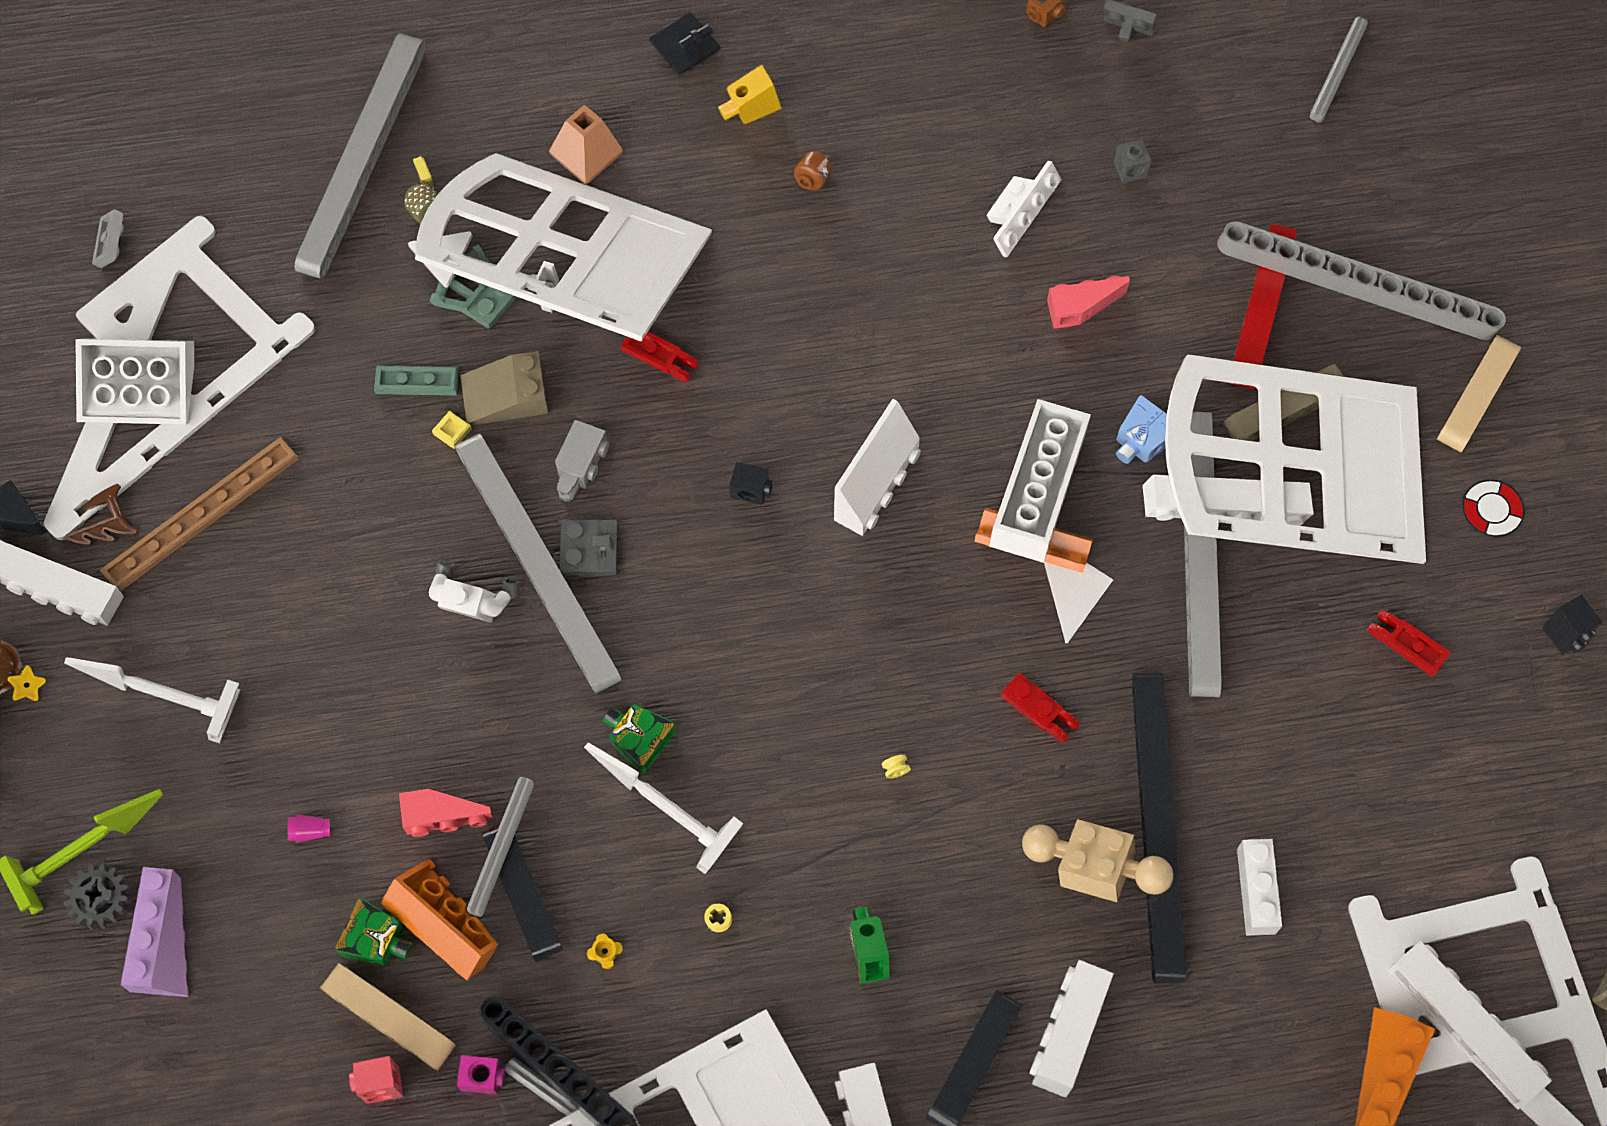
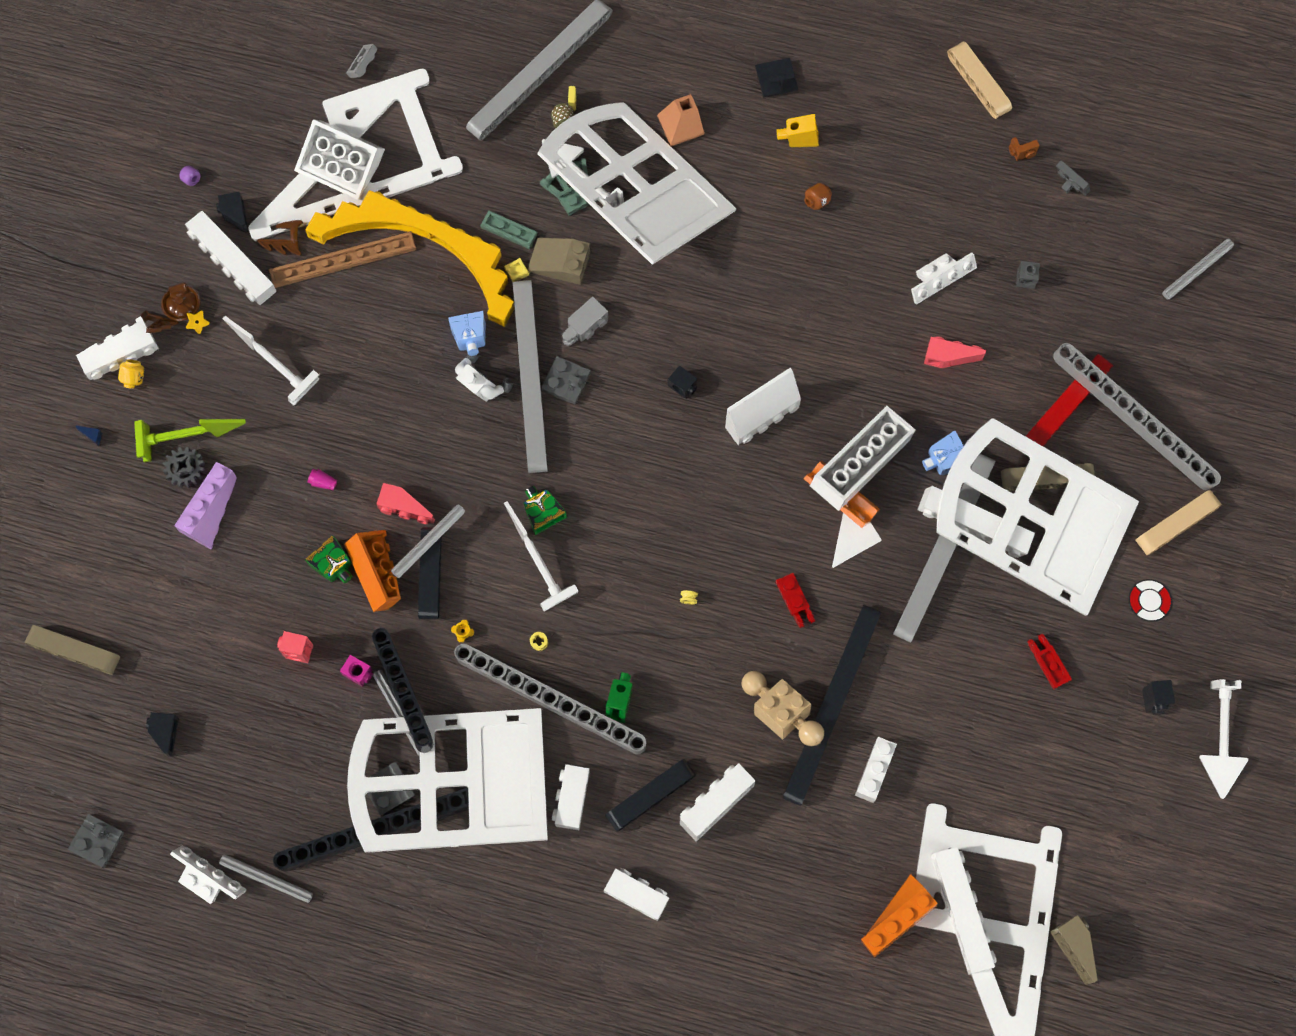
camera: 25 degrees right, 5 degrees up
(234, 426) = (382, 213): none -> yellow arch
(388, 1017) = (319, 613): tan beam -> none
(424, 537) = (469, 331): none -> light blue torso
(660, 355) = (666, 277): red hinge -> none
(760, 981) = (543, 692): none -> light grey beam

